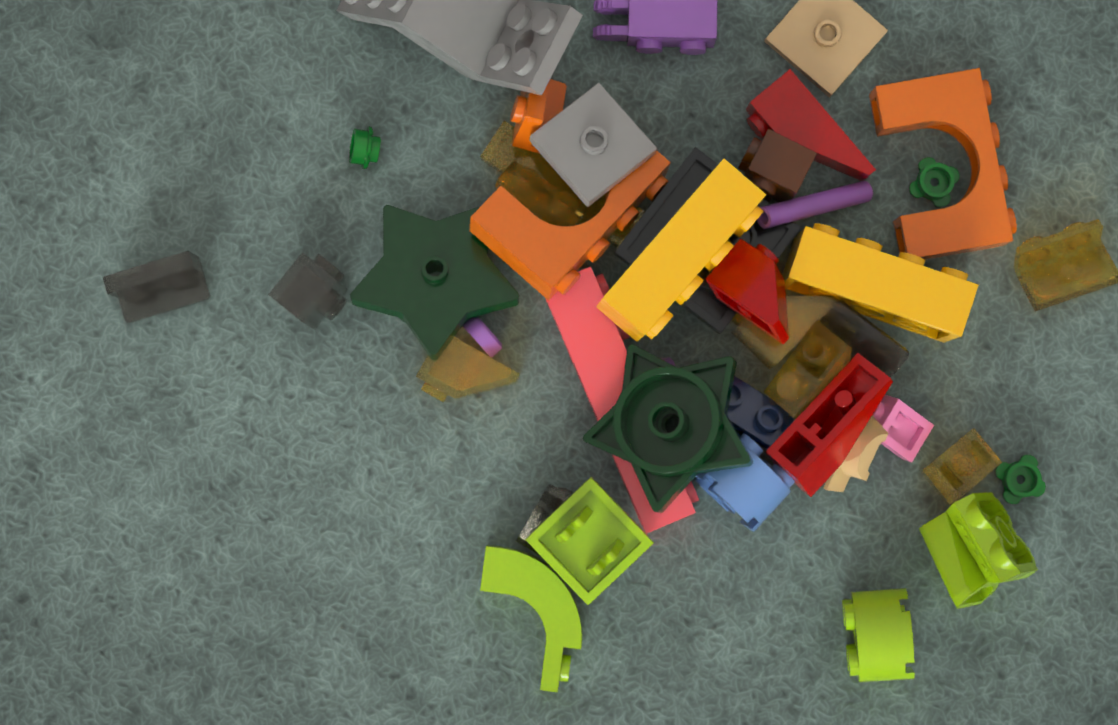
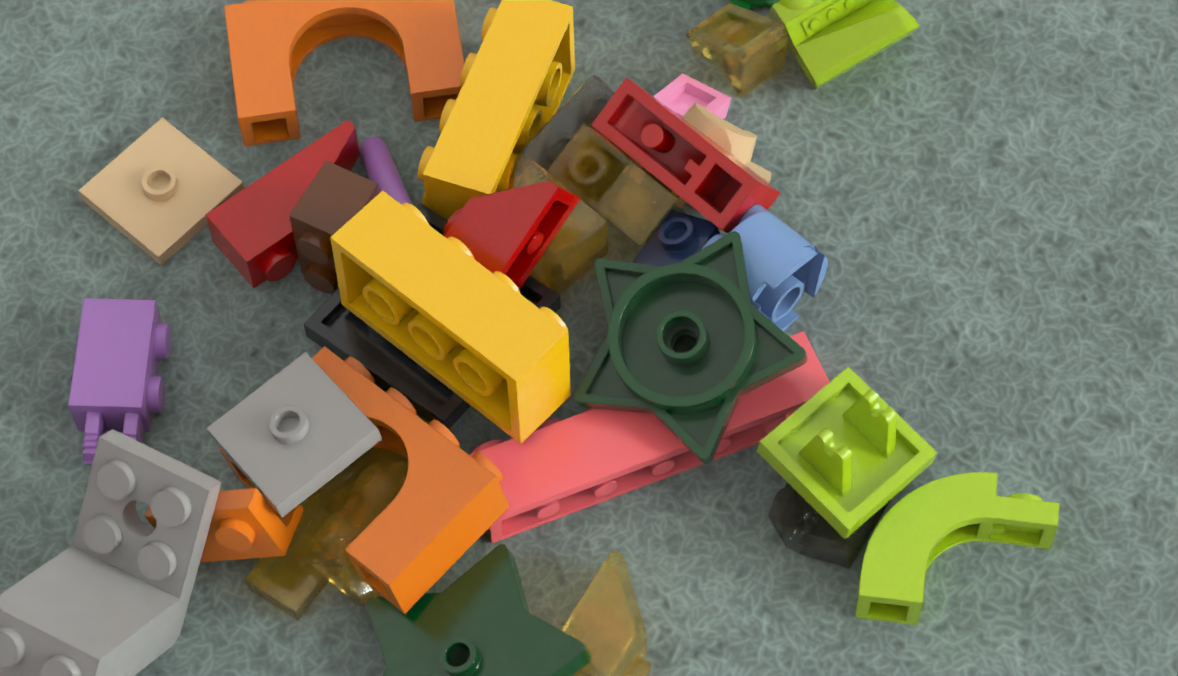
camera: 90 degrees left, 25 degrees down
(483, 336) = (557, 604): medium lavender tile -> none
(880, 635) = (957, 124): lime brick -> none
(946, 179) = (366, 57): green plate -> none

